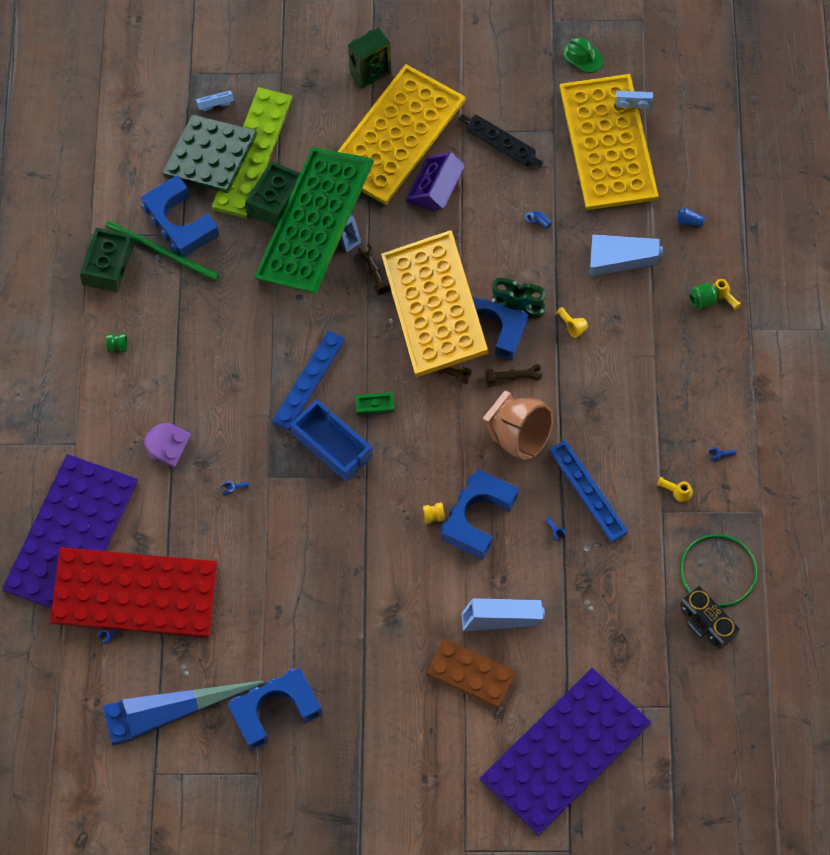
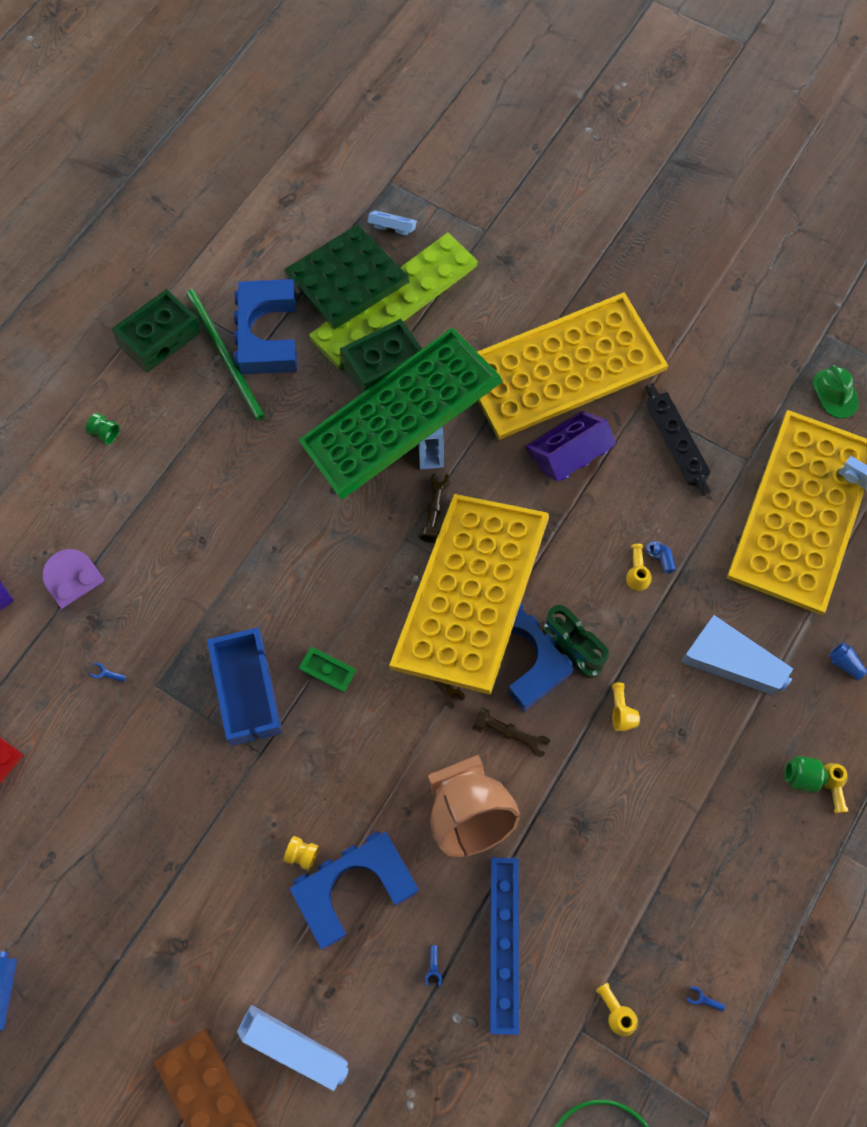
camera: 30 degrees right, 5 degrees up
(308, 380) = (275, 595): blue plate -> none
(369, 57) = (585, 262): dark green piece -> none
(529, 243) = (632, 579): none -> yellow bar

